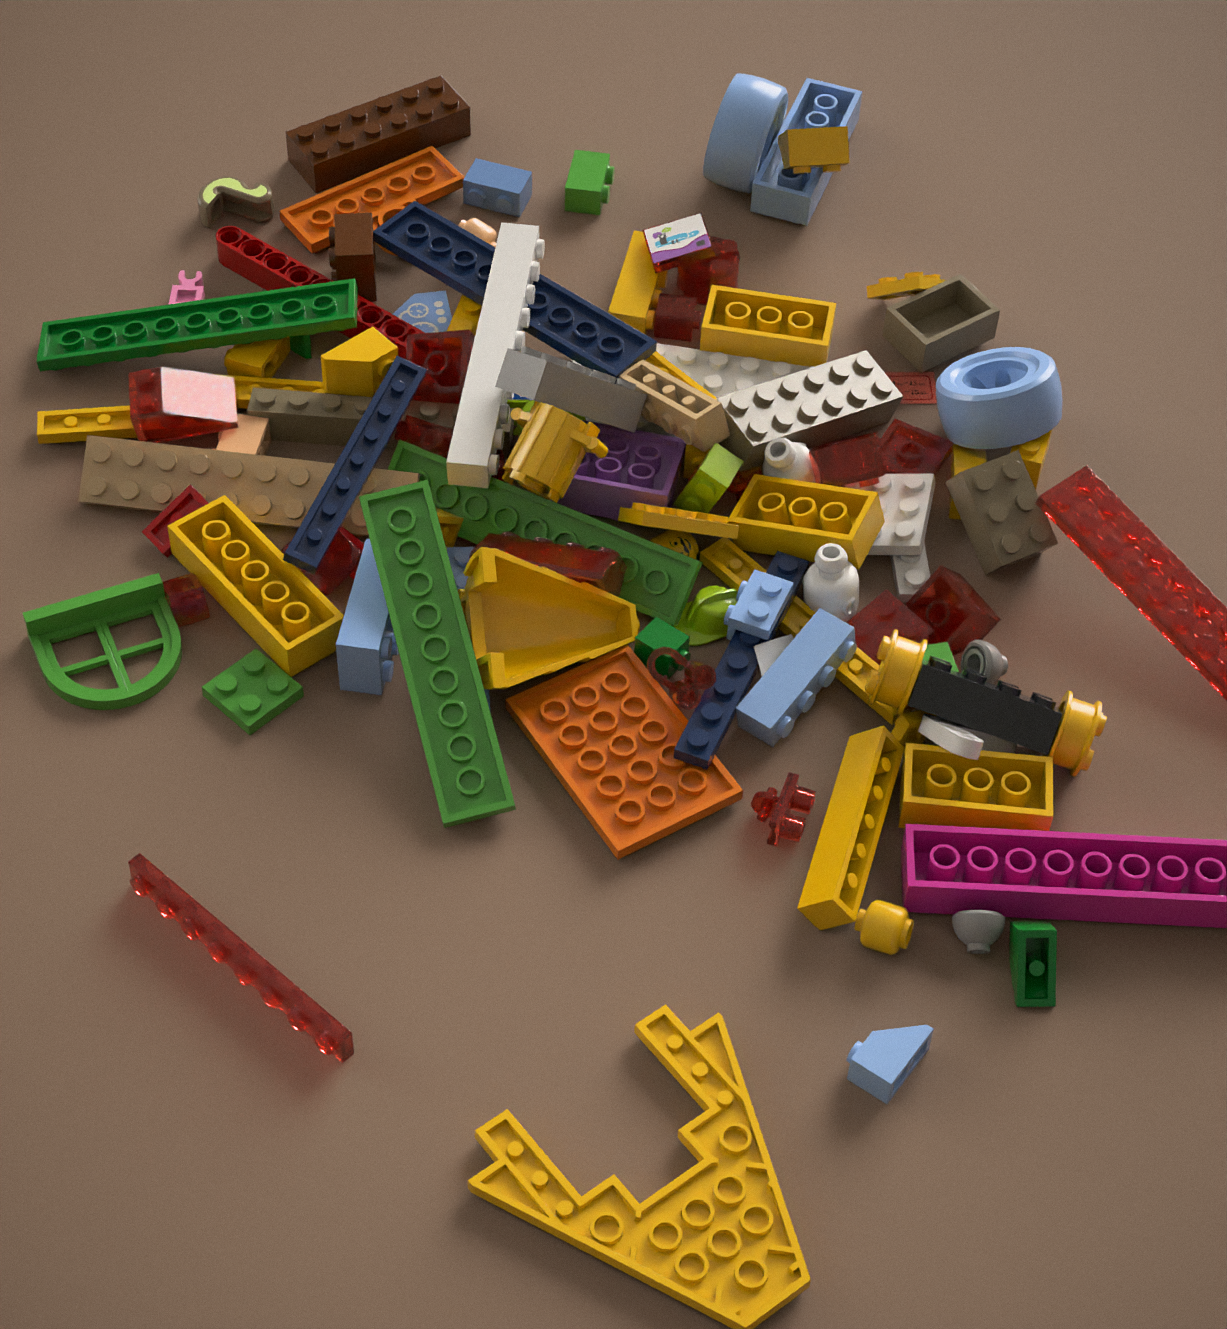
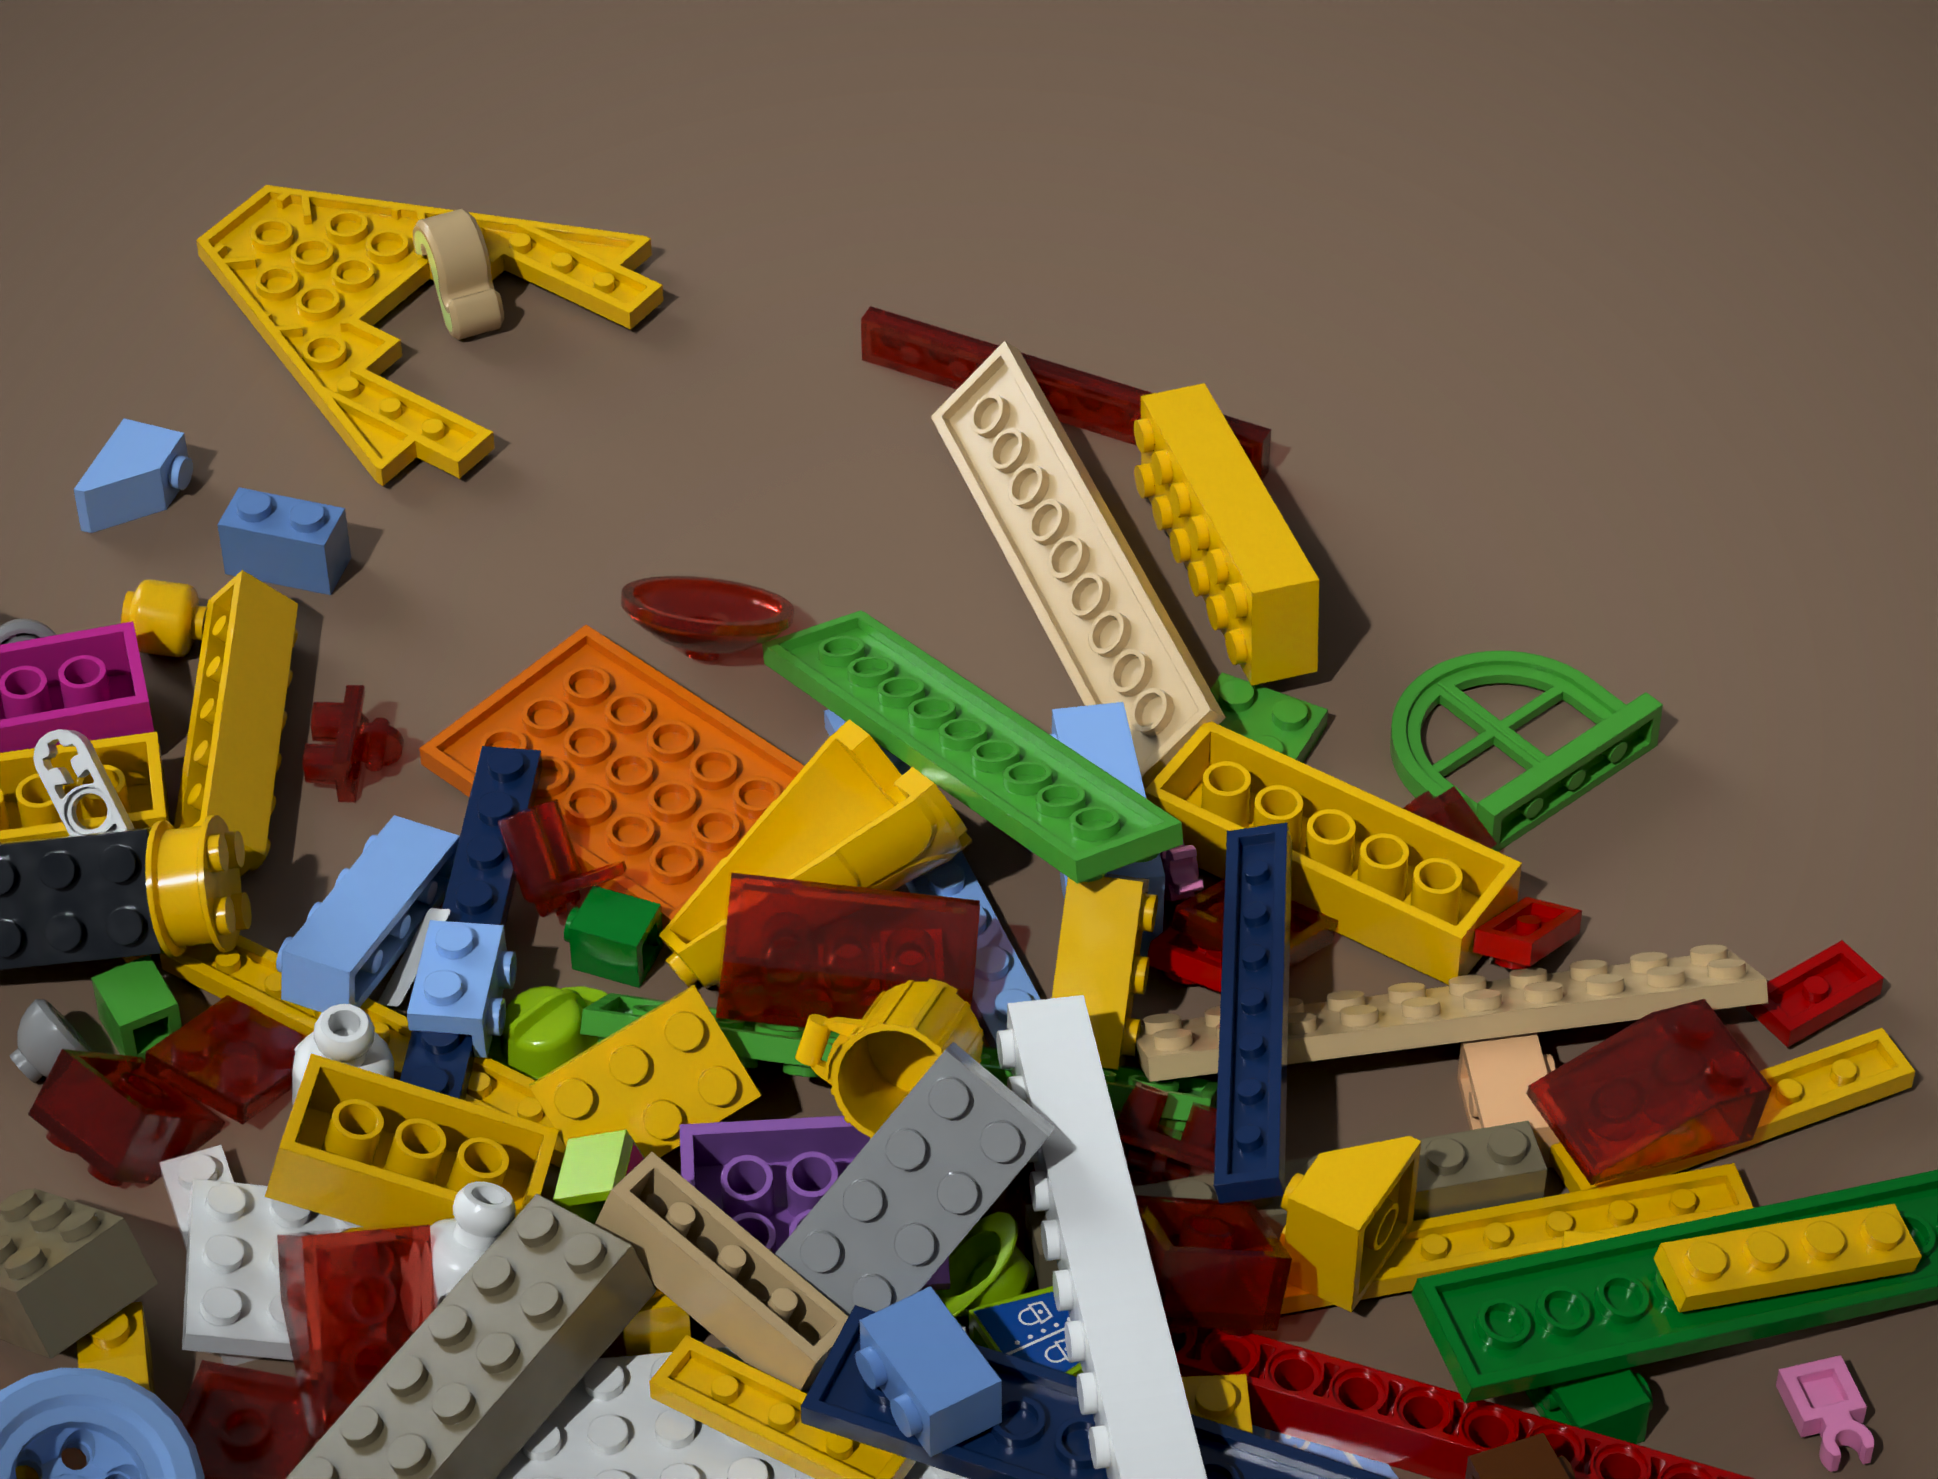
camera: 165 degrees right, 5 degrees down
(51, 467) = (1817, 993): none -> red plate
(172, 315) = (1786, 1257): none -> yellow plate
(205, 778) = (1228, 534): none -> yellow brick
(302, 813) = (1073, 558): none -> tan plate
(346, 579) = (1181, 872): none -> bright pink plate
(524, 812) = (706, 613): none -> clear red dish
(597, 320) = (929, 1372): none -> medium blue brick
(624, 1175) = (460, 272): none -> tan animal
(795, 968) = (285, 540): none -> medium blue brick

